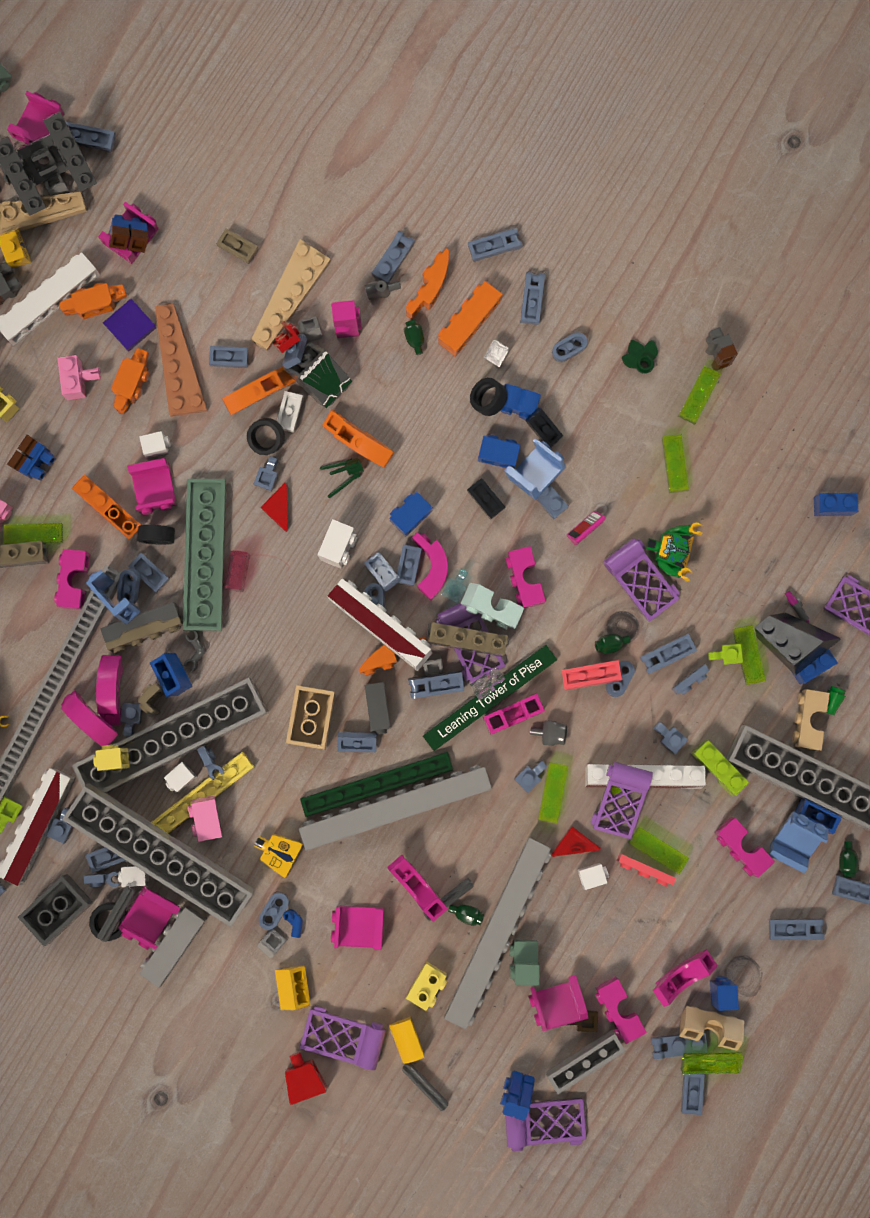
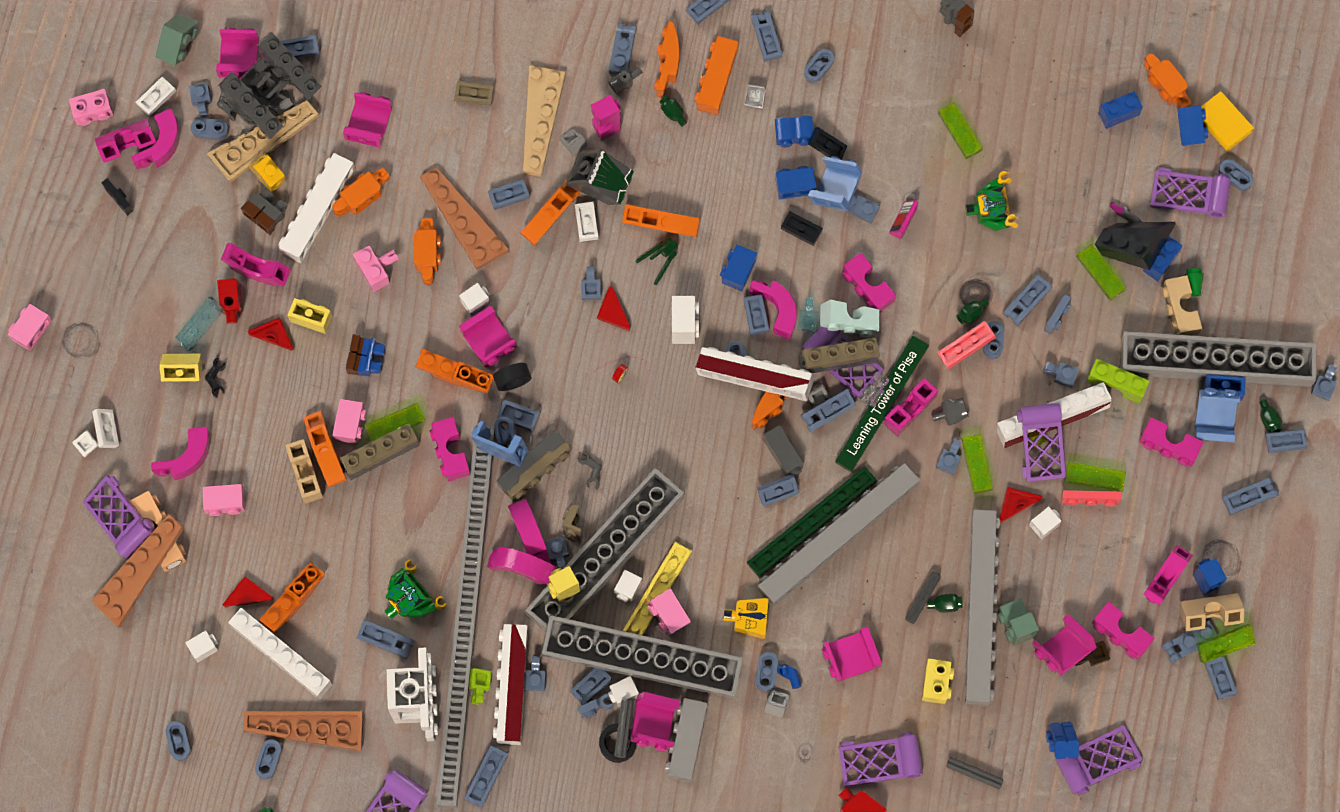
camera: 20 degrees left, 10 degrees down
(55, 910) = (564, 749): dark grey brick -> none
(125, 230) = (371, 119): reddish brown hips -> none
(129, 325) = (403, 202): dark purple tile -> none
(171, 674) = (580, 496): blue brick -> none
(204, 555) = (563, 379): sand green plate -> none
(208, 756) = (646, 559): sand blue plate -> none
(237, 571) = (599, 381): clear pink brick -> none
(255, 446) = (589, 253): black tyre -> none
(258, 570) = (620, 373): none -> red tile
(285, 341) = (560, 155): red bracket -> none
(292, 988) = (814, 733): yellow brick -> none
(295, 353) = (569, 164): sand blue plate -> none
(311, 717) = (726, 483): tan brick -> none
(382, 571) = (734, 329): sand blue plate -> none
(407, 1040) = (940, 737): yellow brick -> none
(417, 887) = (889, 596): dark pink arch -> none
(496, 404) = (775, 140): black tyre -> none
(585, 1062) = (1110, 687): light grey brick -> none
(629, 556) = (952, 231): medium lavender piece -> none
(640, 354) = (885, 47): dark green plate -> none
(699, 395) = (955, 62): clear neon green plate -> none
(730, 654) = (1084, 277): lime plate -> none

